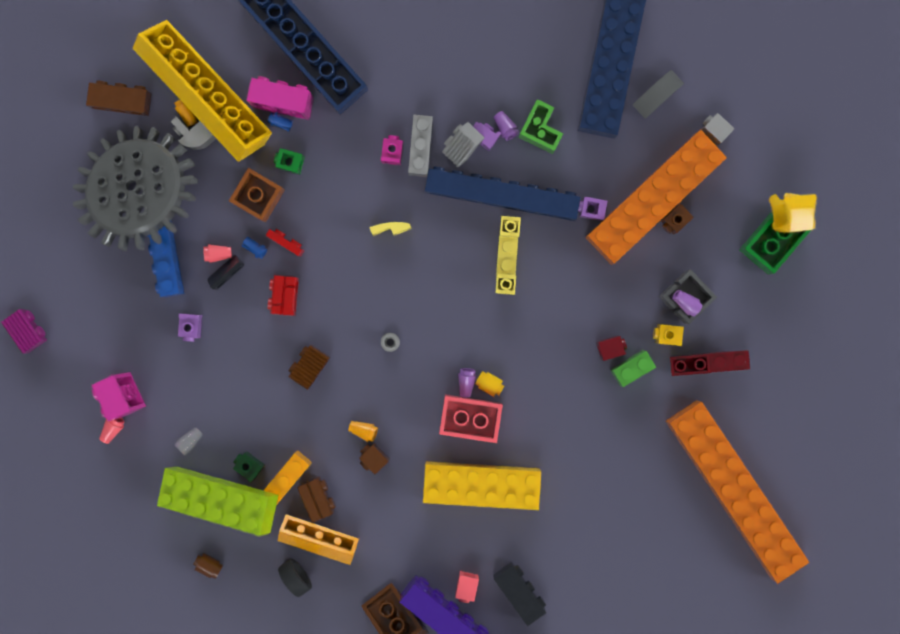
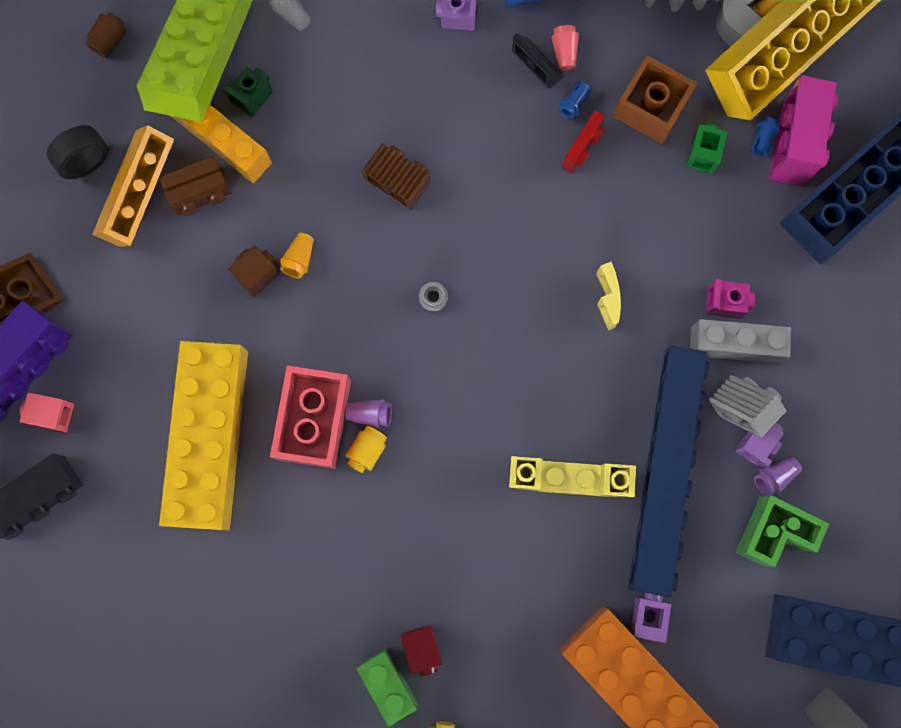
camera: 90 degrees right, 10 degrees down
(284, 295) = (504, 140): red brick -> none

